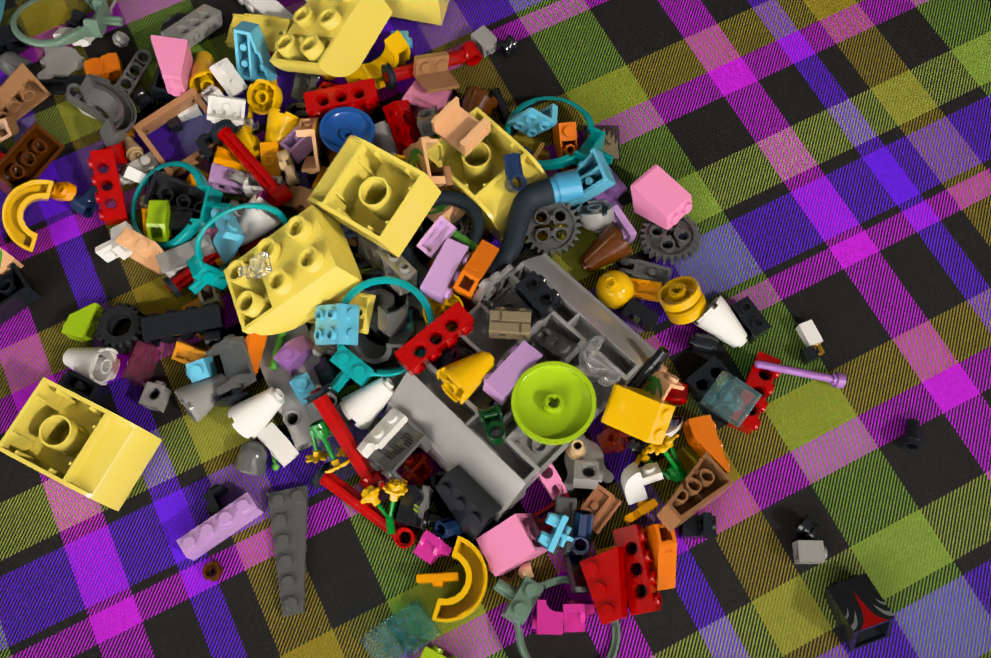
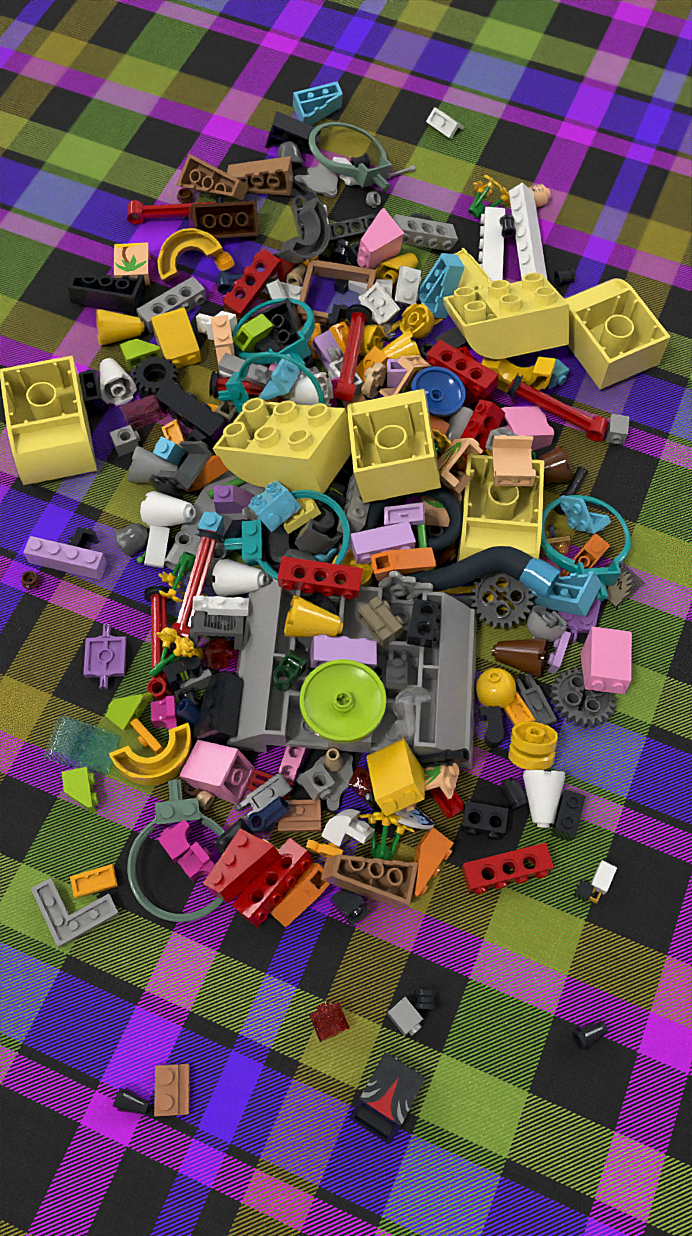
camera: 45 degrees right, 5 degrees down
(40, 322) = (117, 326): none -> yellow cone
(55, 269) = (185, 295): none -> light grey brick
(100, 283) = (176, 338): none -> yellow slope
(107, 66) = (340, 208): orange brick -> none
(259, 266) = (266, 414): clear plate -> none
(289, 531) = (102, 605): dark grey wing -> none
(338, 559) = (105, 657): none -> medium lavender plate
(402, 575) = (125, 709): none -> lime slope
(433, 72) = (549, 413): medium nougat bracket -> none
(507, 46) = (631, 448): black wheel -> none
(513, 170) = (513, 526): dark blue piece -> none
(550, 540) = (239, 793): medium azure hips -> none
(730, 399) = (479, 847): clear light blue slope -> none
(773, 610) = (329, 1021): none -> clear red brick
(835, 379) = (581, 930): medium lavender piece -> none

